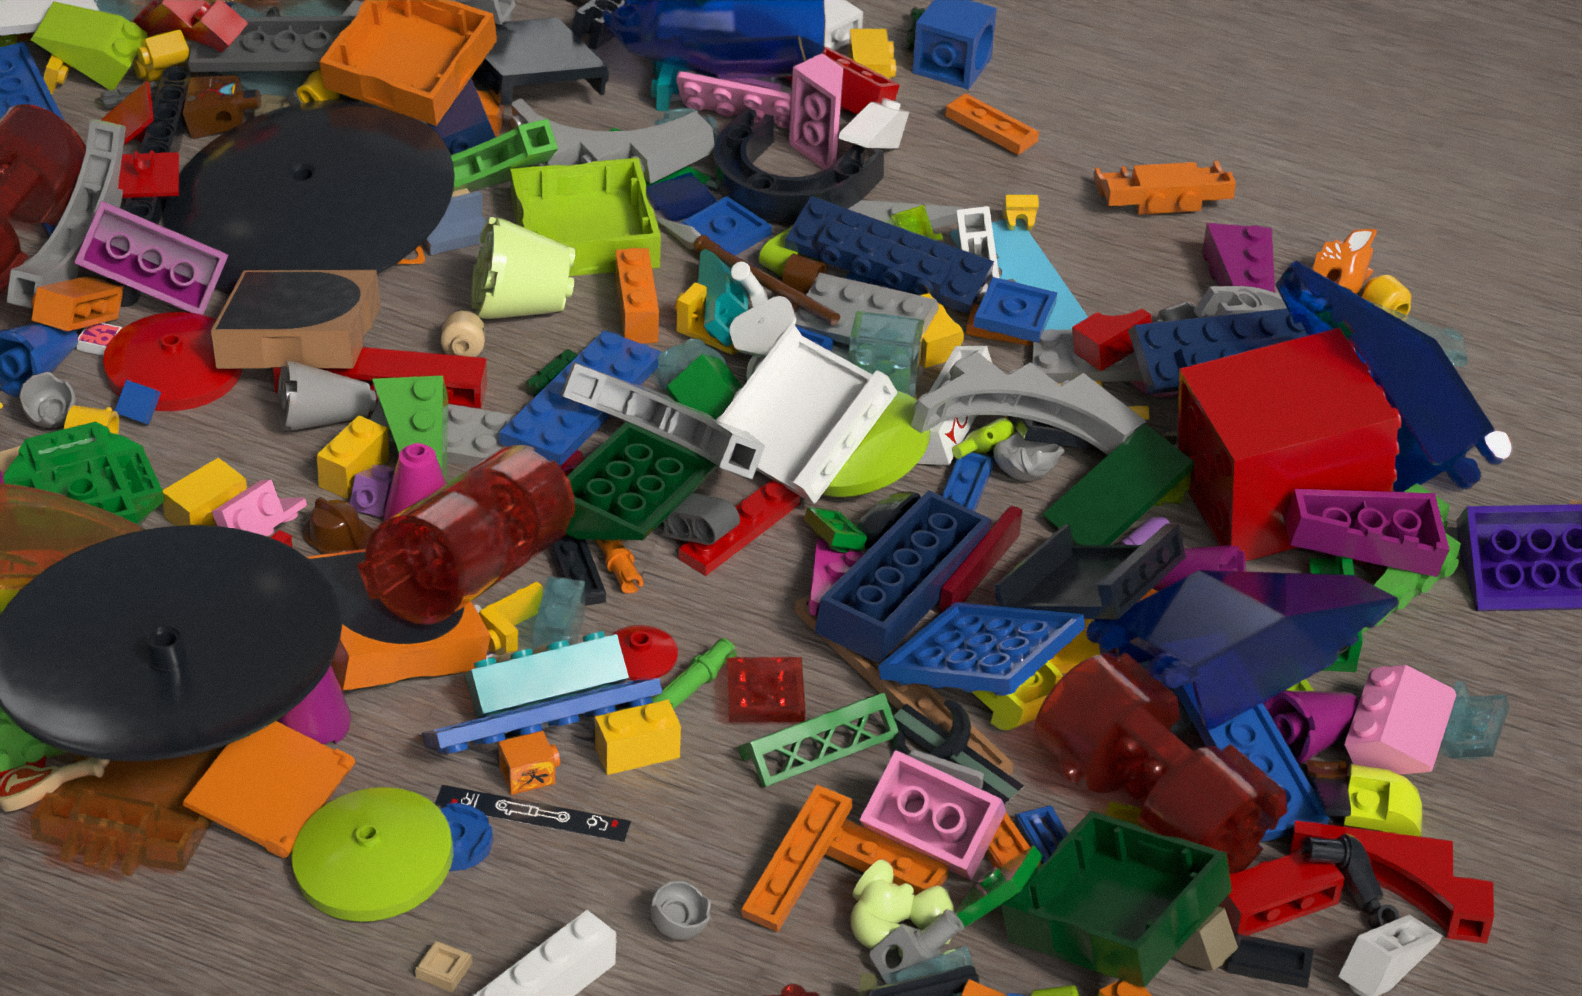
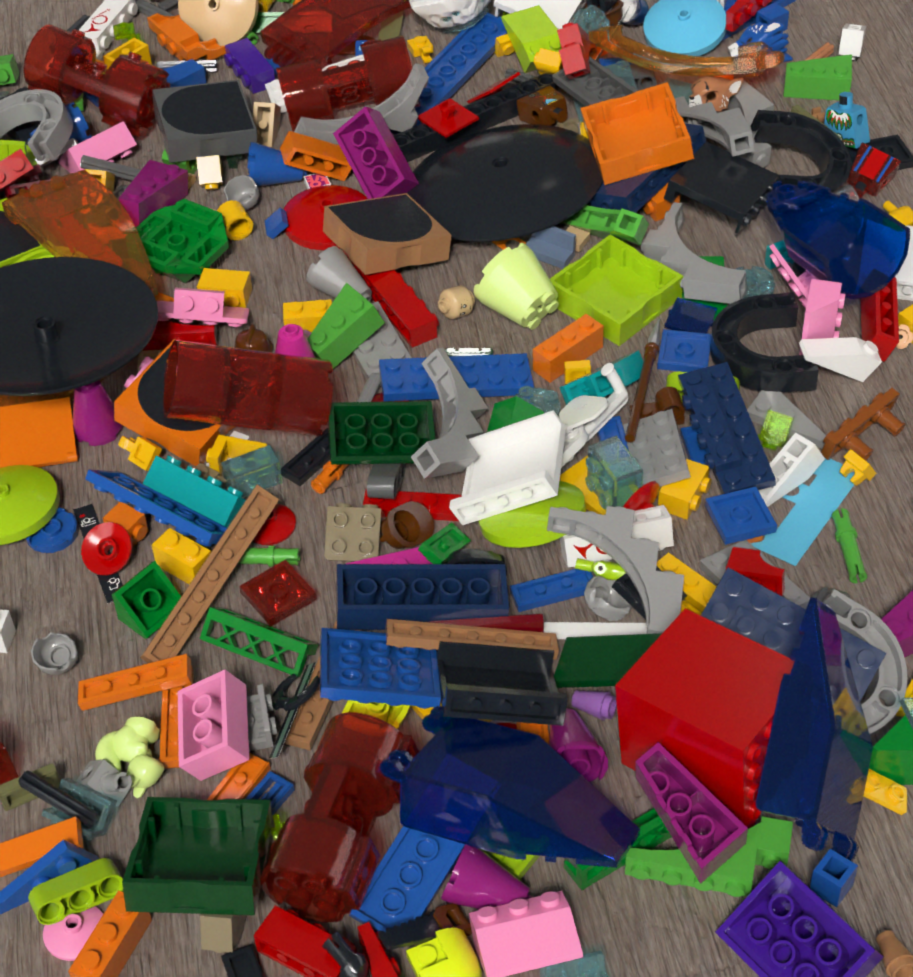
camera: 60 degrees right, 5 degrees up
(418, 695) = (142, 451): none -> yellow plate
(563, 779) = (97, 544): none -> red dish
(675, 798) = (146, 600): none -> green slope
(703, 724) = (211, 576): none -> medium nougat plate
(739, 587) = (353, 532): none -> dark tan bracket
(775, 547) = (407, 525): none -> reddish brown piece
(931, 362) = (643, 497): none -> red dish
(964, 168) = (866, 416): none -> dark orange plate
(977, 584) = (427, 636): none -> medium nougat plate
(998, 886) = (173, 789): green plate -> none
(1051, 489) = (585, 629): none -> white sticker
(1098, 269) = (846, 536): none -> bright green pin
(1494, 488) = (833, 877): none -> blue brick

